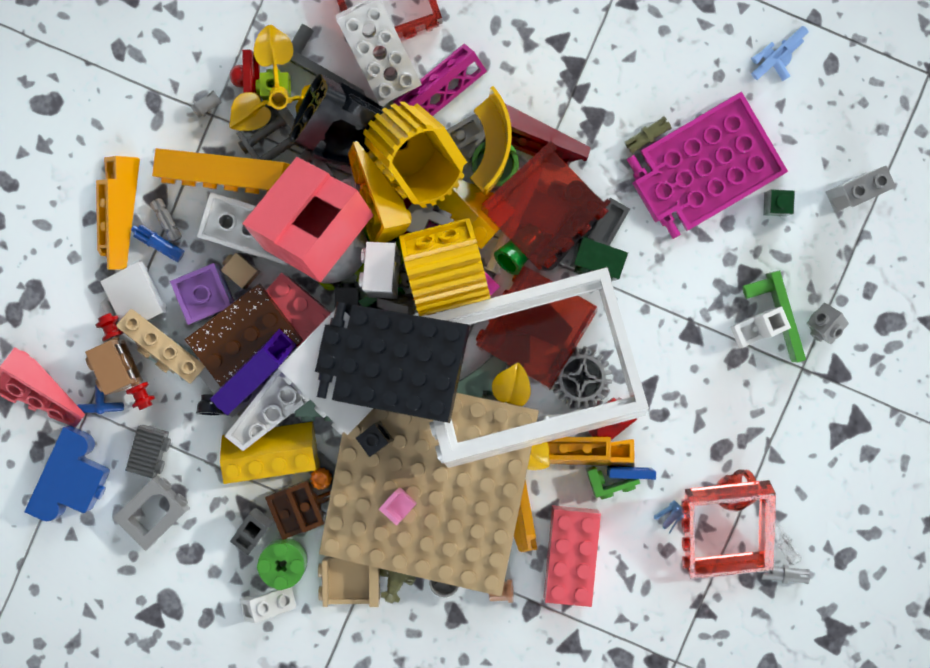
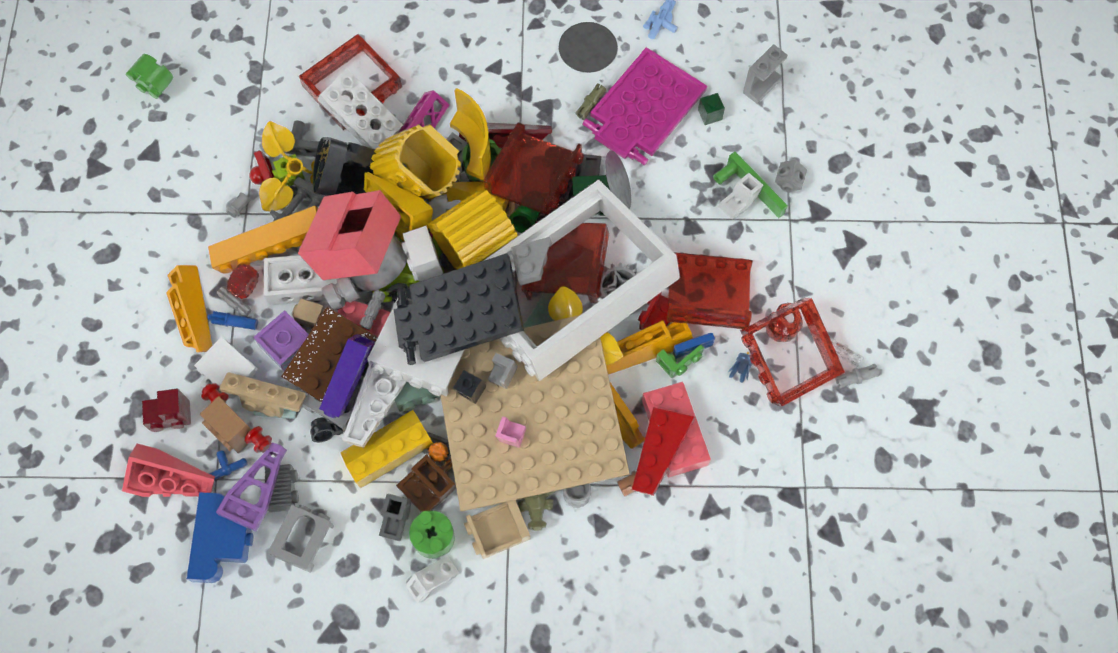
camera: 25 degrees left, 20 degrees down
(56, 323) = (166, 411): none -> dark red brick
(99, 470) = (244, 512): none -> medium lavender plate
(181, 204) = (242, 281): none -> clear red gear
(273, 273) = (341, 292): none -> light grey wheel
(306, 304) = (372, 309): none -> light grey axle
(415, 435) = (502, 371): none -> light grey panel
(491, 336) = (530, 259): none -> light grey wing
(550, 572) = (661, 443): none -> red wing
(633, 257) = (618, 178): none -> flat silver sticker
(676, 58) = (588, 47): none -> flat silver sticker
(679, 424) = (711, 291): none -> clear red panel

